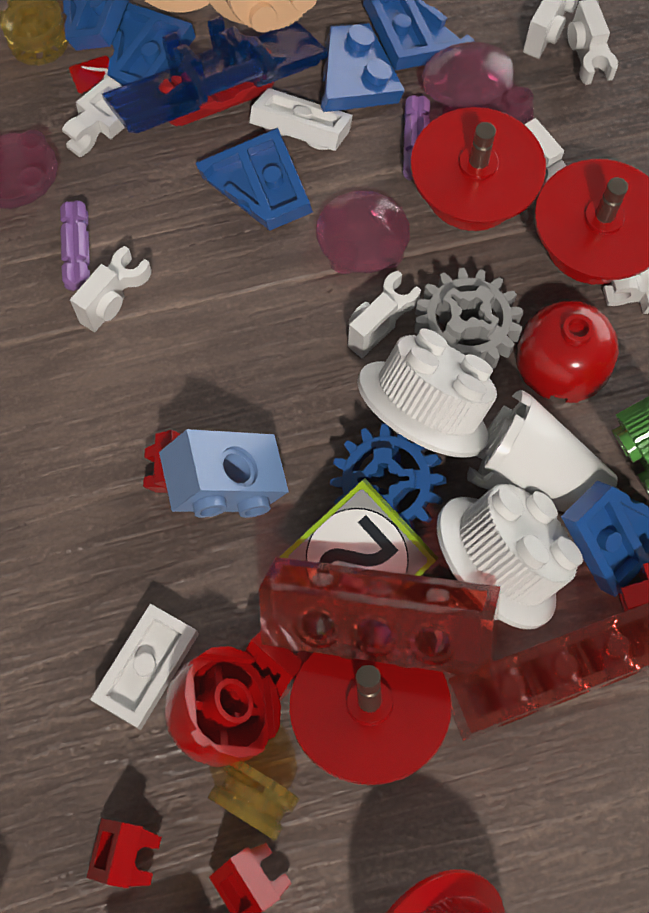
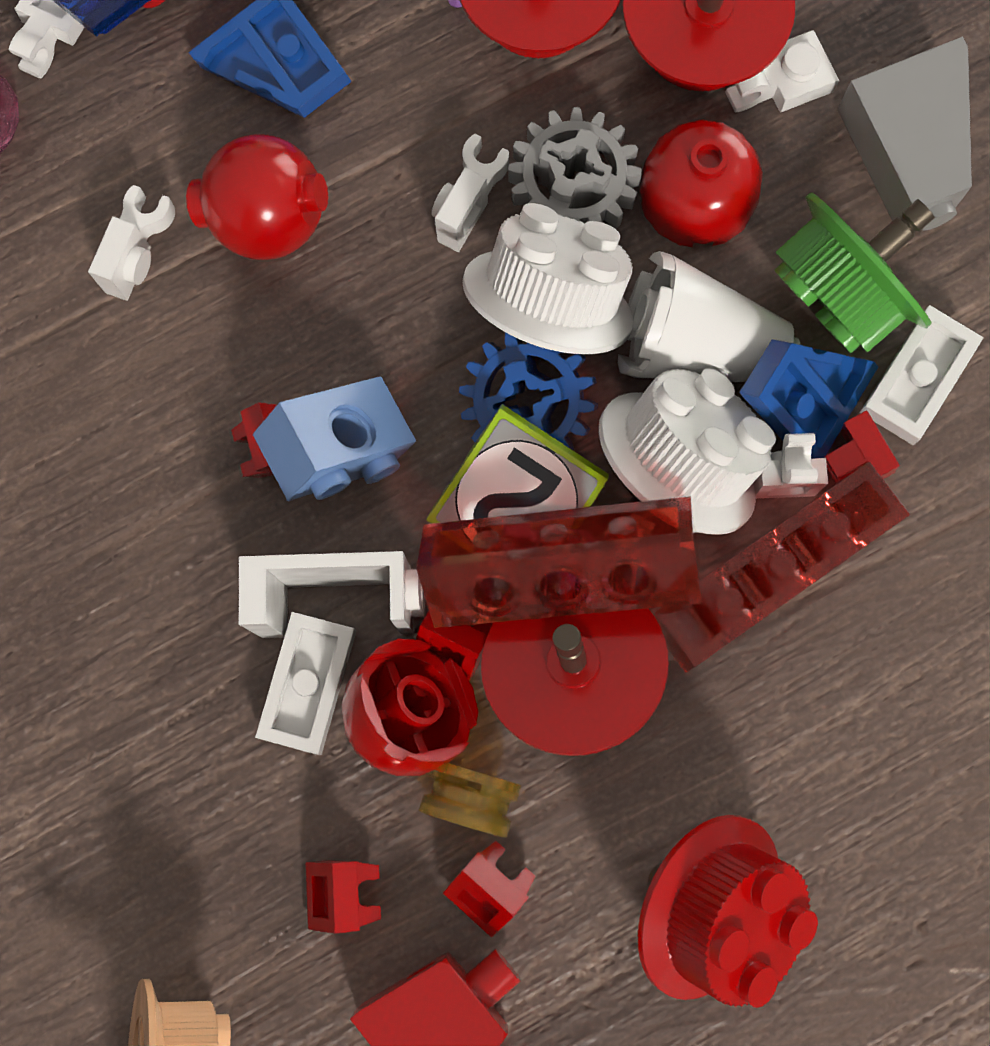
camera: 10 degrees left, 10 degrees up
(74, 244) = (70, 196): medium lavender axle -> none
(139, 568) = (266, 579): none -> white panel
(217, 278) = (258, 197): none -> red brick
(363, 232) = (419, 92): clear pink dish -> none
(590, 593) = (792, 470): none -> white plate

